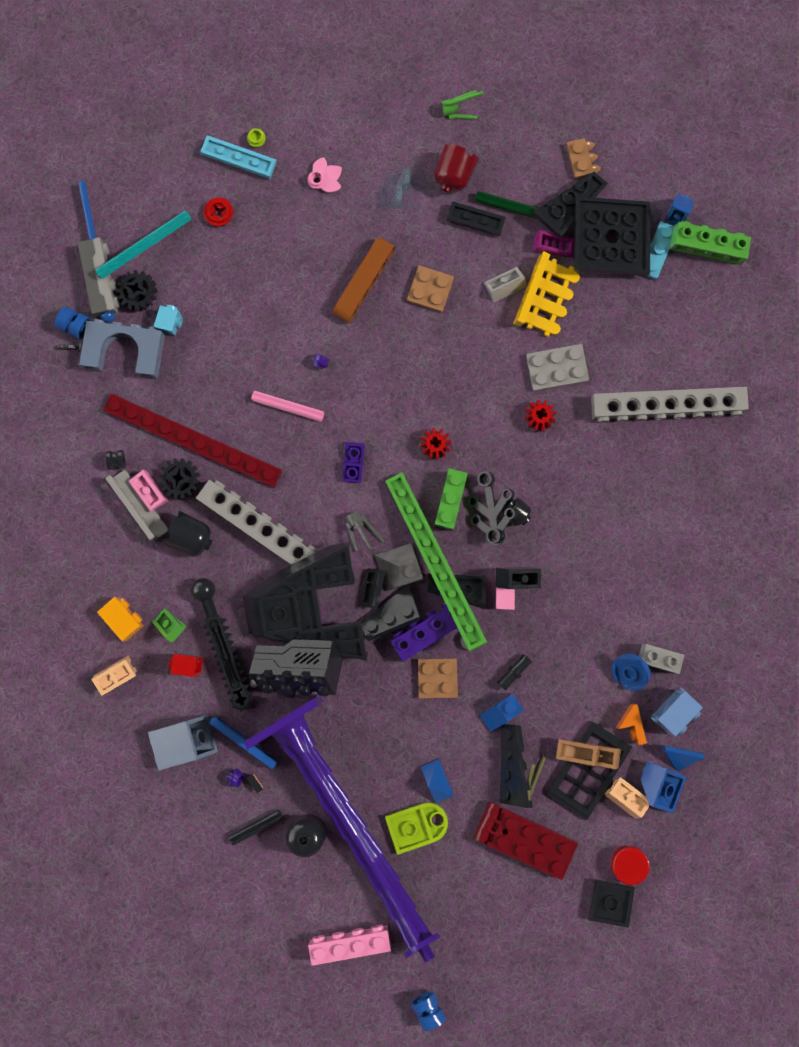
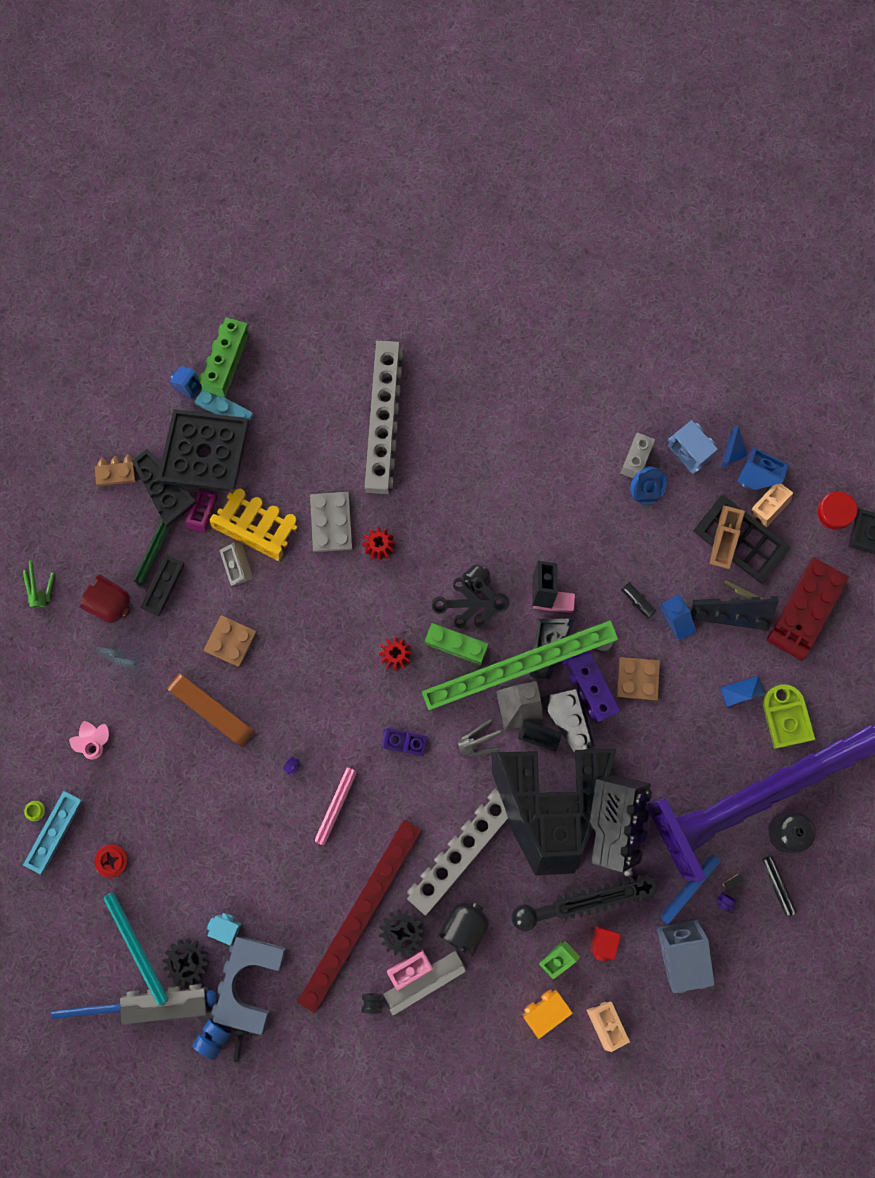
camera: 85 degrees left, 5 degrees down
(632, 718) = (694, 490): orange slope -> none

